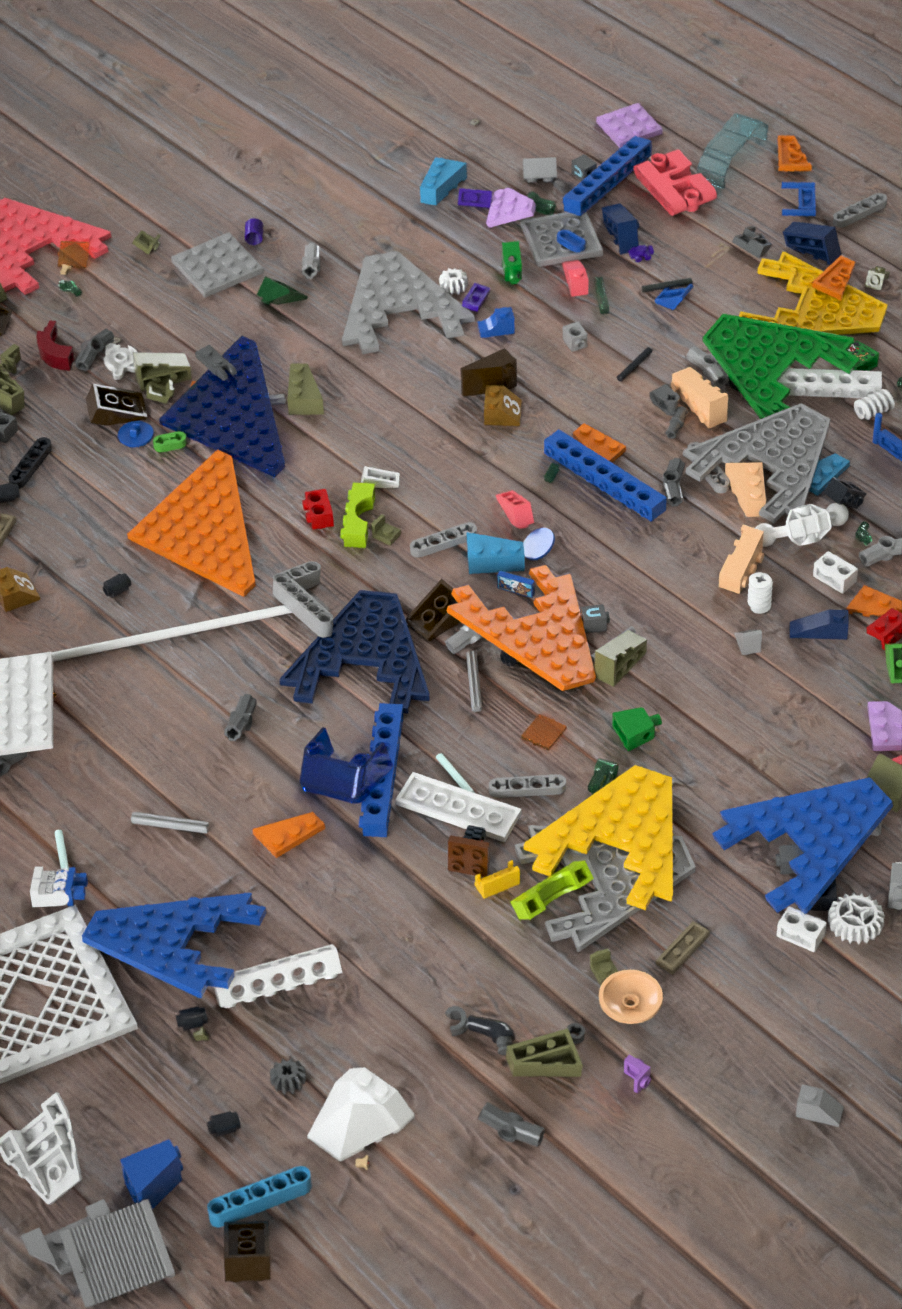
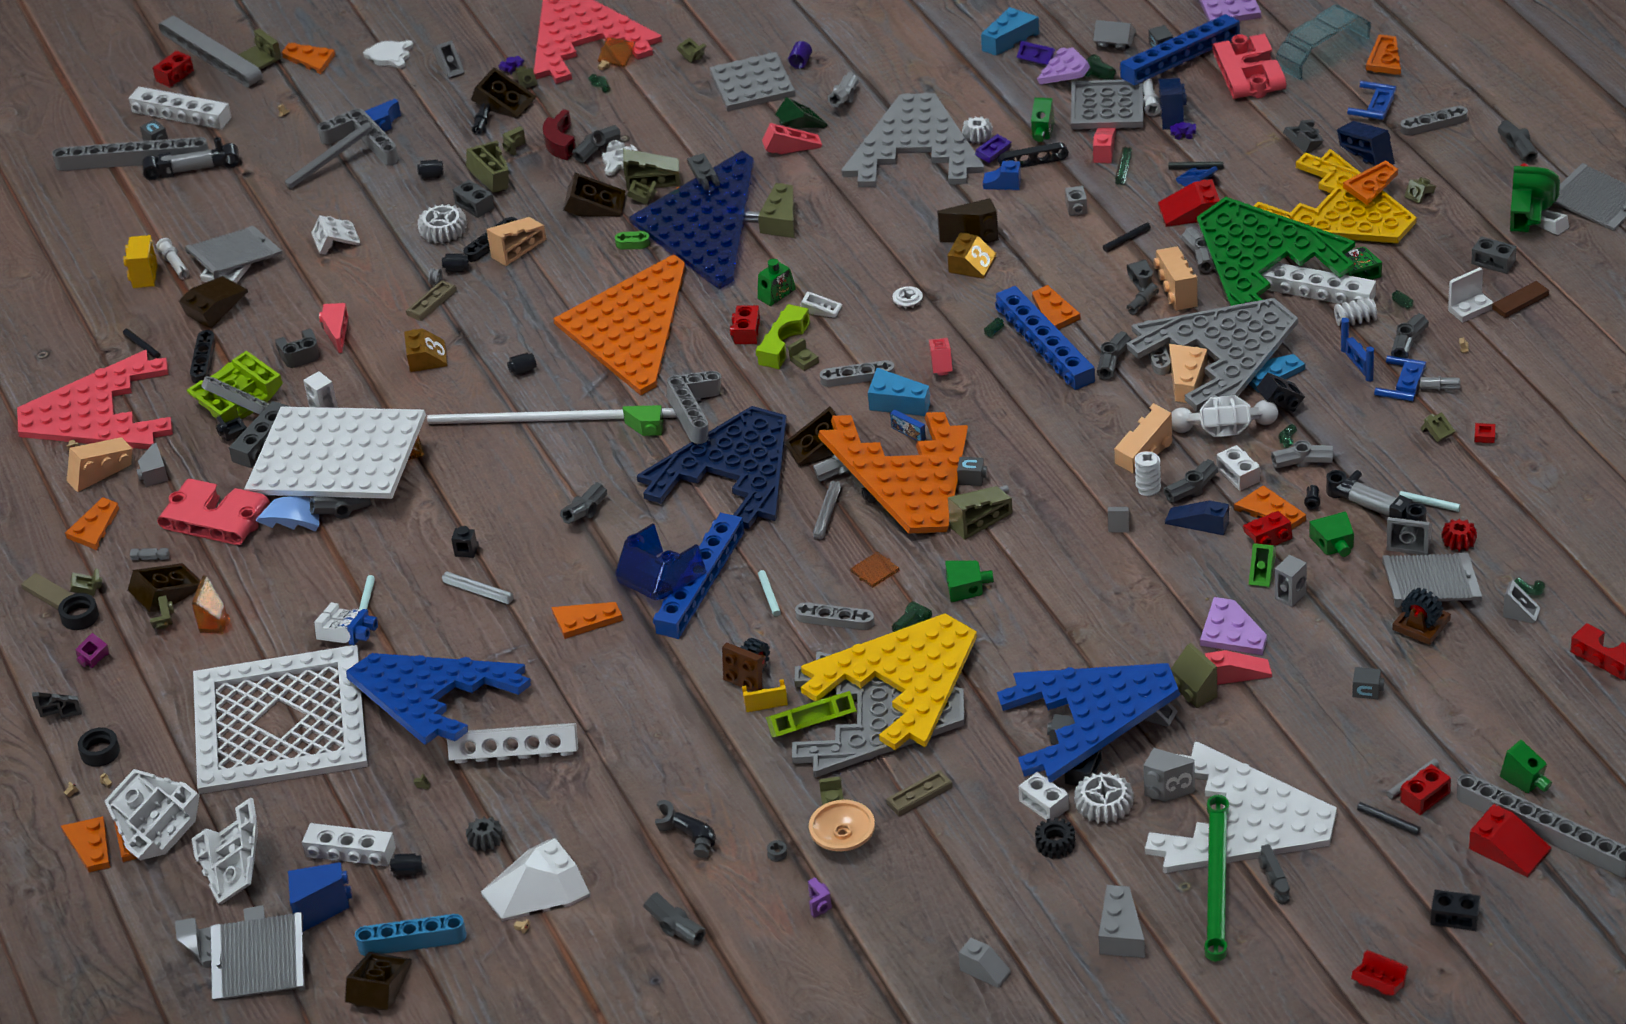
camera: 20 degrees right, 5 degrees down
(57, 460) = (514, 239): none -> light nougat wedge
(135, 434) = (603, 228): blue piece -> none
(139, 773) = (464, 537): none -> black brick
(166, 1110) = (348, 844): none -> white brick
(191, 1018) = (418, 764): black brick -> none
(261, 621) = (644, 419): none -> bright green slope
(280, 318) = (788, 140): none -> coral slope
(330, 463) = (775, 282): none -> green torso
(458, 806) = (757, 620): white plate -> none
(459, 451) = (913, 294): none -> white gear
(534, 292) = (1033, 152): none -> black beam
(538, 543) = (947, 391): piece -> none
(545, 1056) = (733, 863): olive wedge -> none
(571, 241) = (1113, 107): blue tile -> none
(600, 228) = (1150, 99): none -> white pin
(681, 323) = (1188, 203): none -> red slope
(801, 595) = (1193, 482): none -> dark grey piece
(825, 976) = (1055, 847): none -> black tyre

